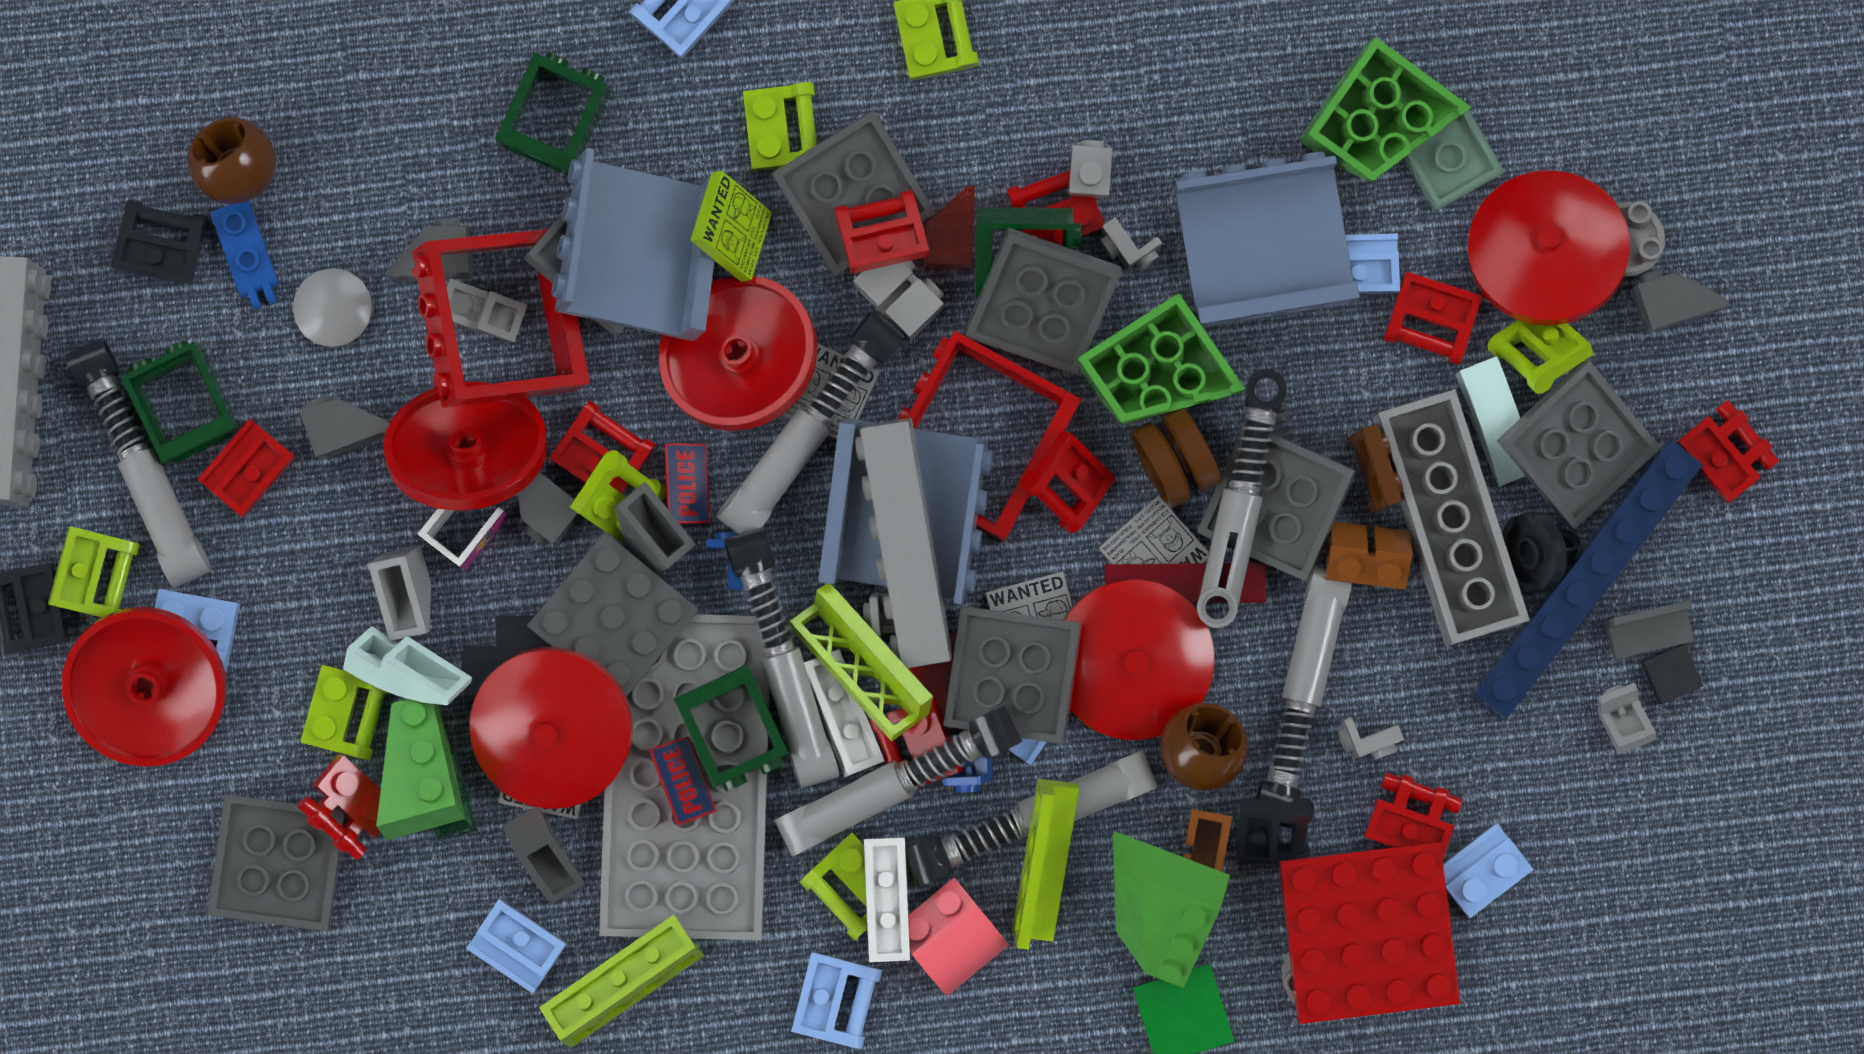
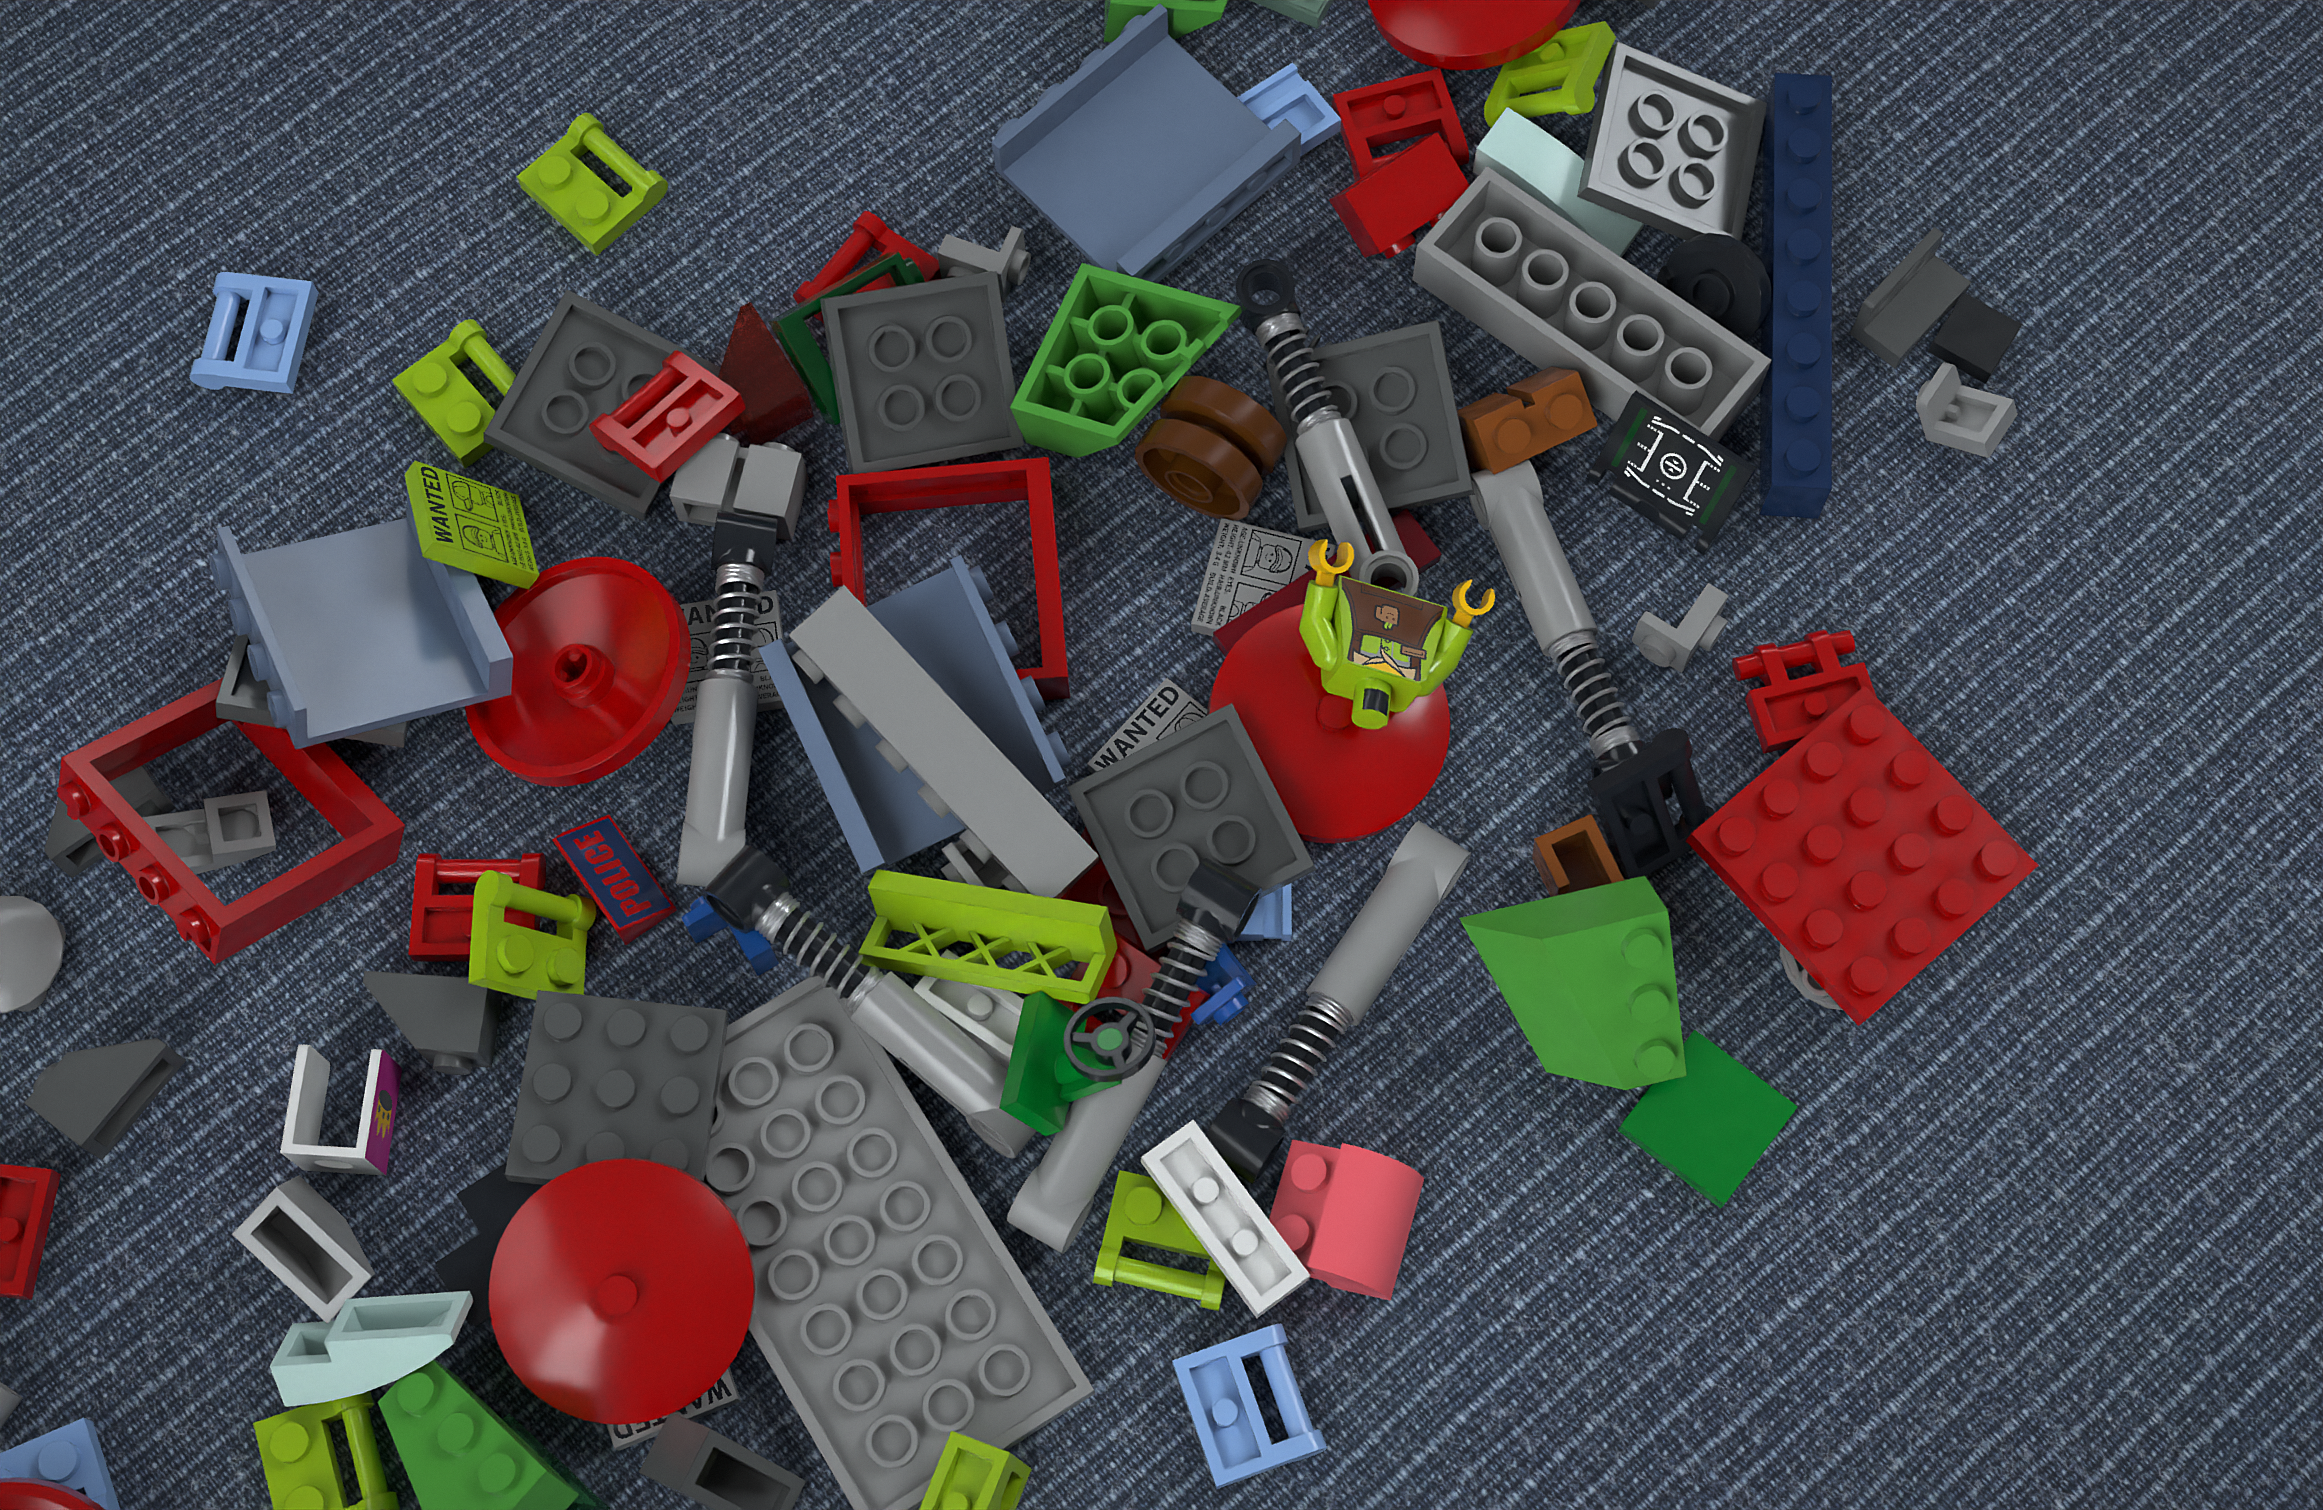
camera: 30 degrees left, 15 degrees down
(466, 452) = (279, 1002): red dish -> none
(539, 151) = (165, 598): dark green window -> none
(651, 530) = (598, 948): dark grey slope -> none
(682, 780) = (848, 1245): dark blue slope -> none
(713, 690) = (816, 1095): dark green window -> none
(853, 761) = (1061, 1063): none -> green piece
(1044, 861) = (1395, 1034): lime fence -> none
(1078, 472) = (1107, 546): red plate -> none
(1090, 169) = (880, 207): light grey bracket -> none
(1186, 643) = (1380, 642): none -> torso
(1204, 746) = (1493, 760): reddish brown wheel -> none
(1381, 482) = (1470, 319): reddish brown plate -> none
(1398, 367) = (1401, 197): none -> red brick
(1428, 644) = (1671, 471): none -> black piece
(1484, 870) = (1940, 694): light blue plate -> none
(1722, 463) = (1860, 80): red plate -> none

